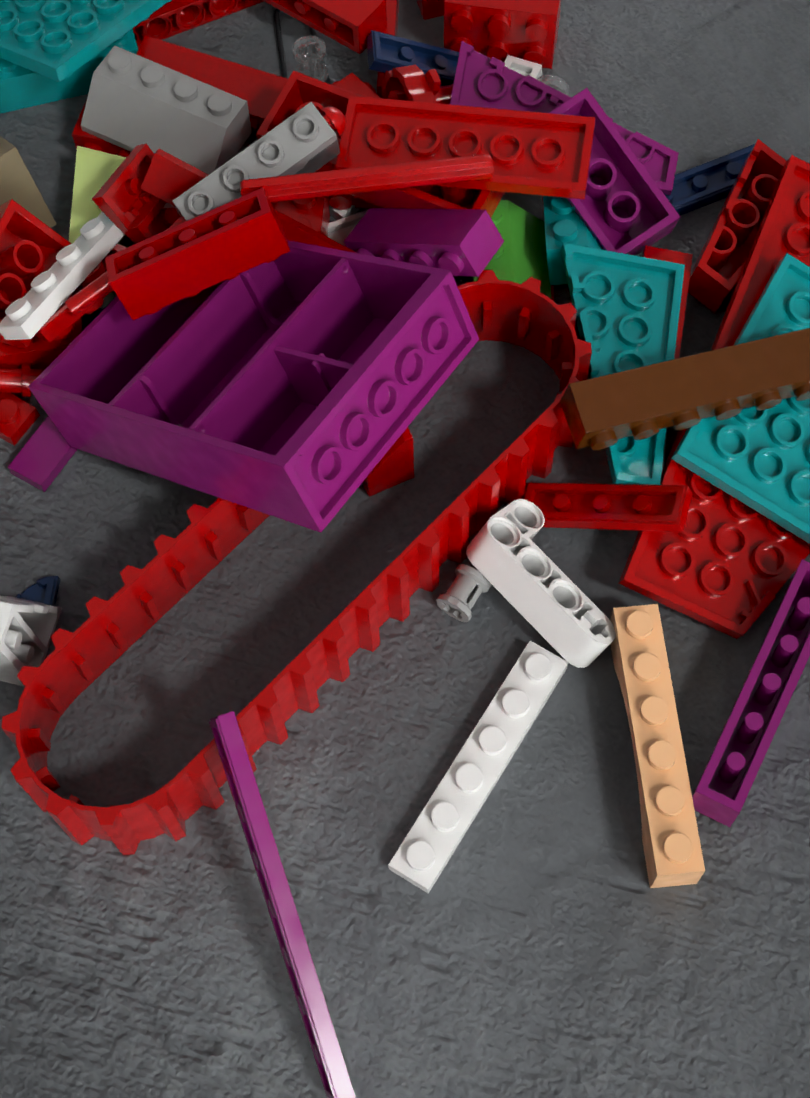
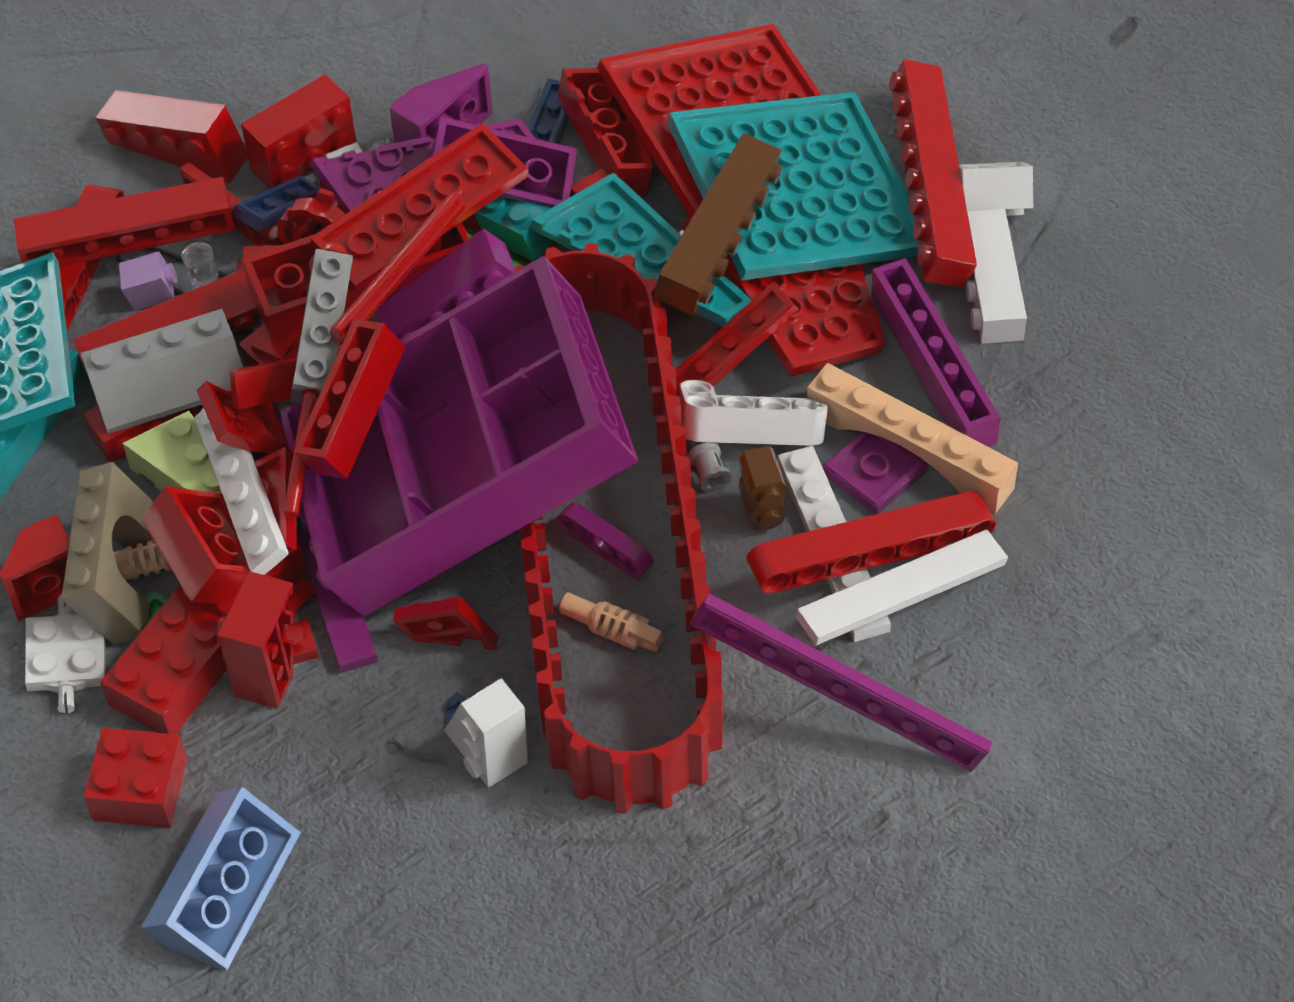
camera: 50 degrees left, 10 degrees down
(109, 511) = (444, 622): none -> red wing
(226, 643) = (612, 622): none -> light nougat hinge
(262, 40) = (147, 280): none -> lavender brick
(307, 578) = (605, 540): none -> magenta beam
(466, 657) = (762, 488): none -> reddish brown brick
(473, 870) = (900, 587): none -> white tile
(494, 803) = (868, 542): none -> red beam
(591, 738) = (874, 470): none -> magenta tile
(635, 91) = (458, 96): none -> magenta slope

